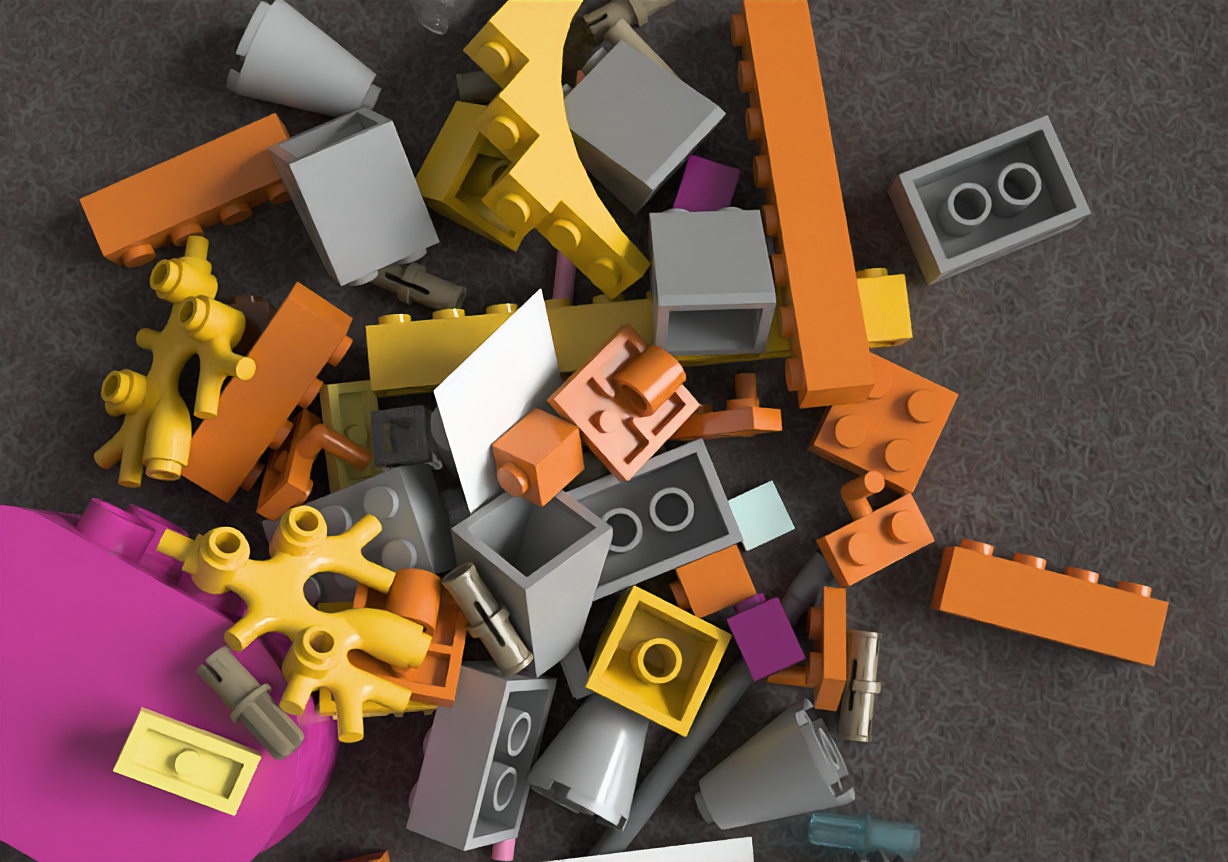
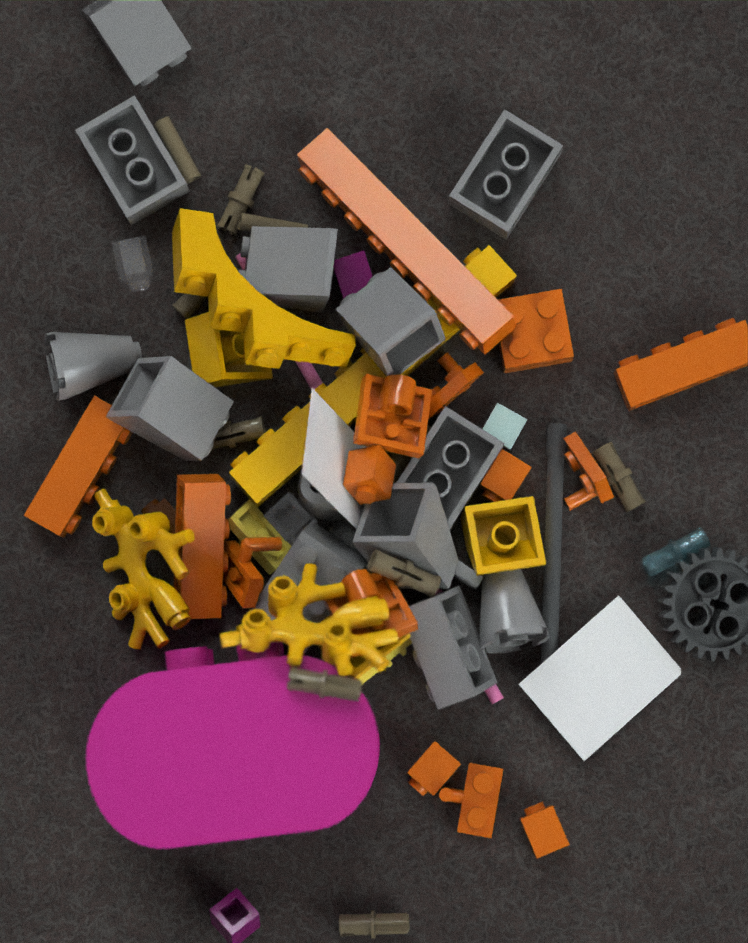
camera: 30 degrees left, 0 degrees up
(187, 761) = (315, 730): light yellow plate -> none
(764, 636) = (551, 485): magenta brick -> none
(776, 773) = (607, 552): light grey cone -> none
(873, 536) = (571, 393): orange plate -> none

